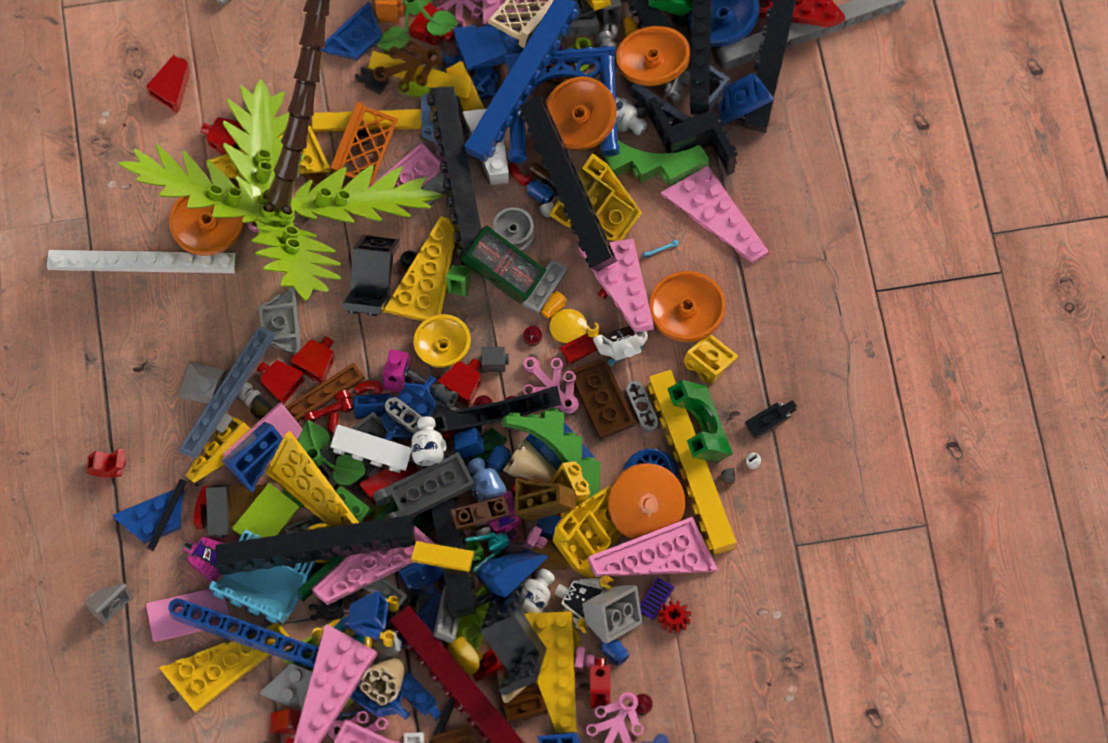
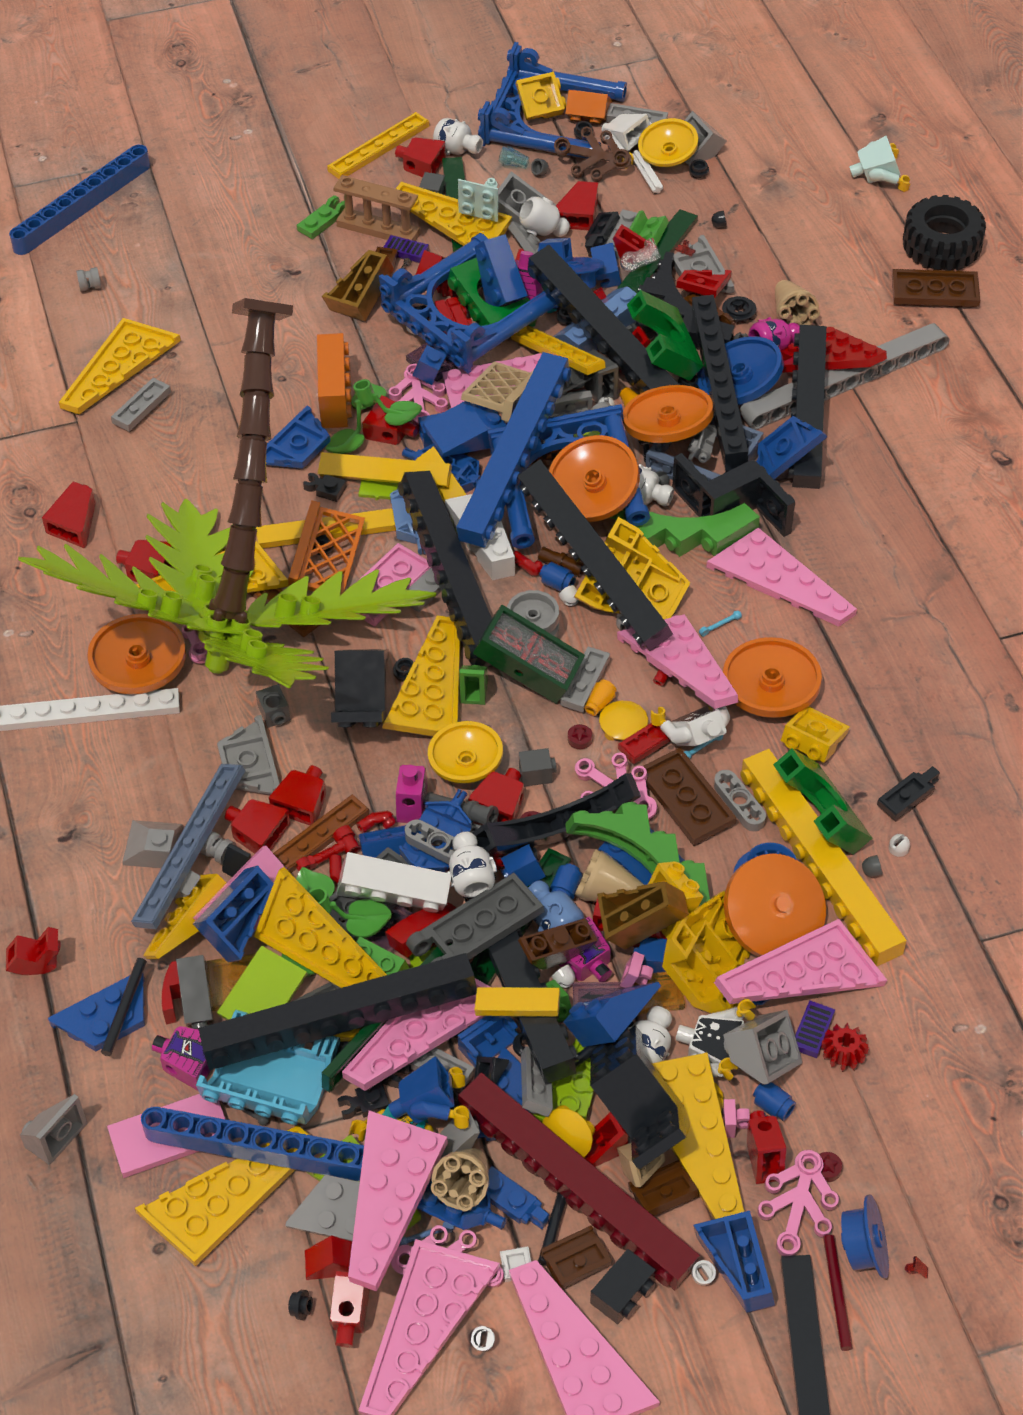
camera: 10 degrees left, 15 degrees down
(411, 64) = (371, 458): reddish brown plant -> none
(496, 543) = (584, 982): teal plant -> none

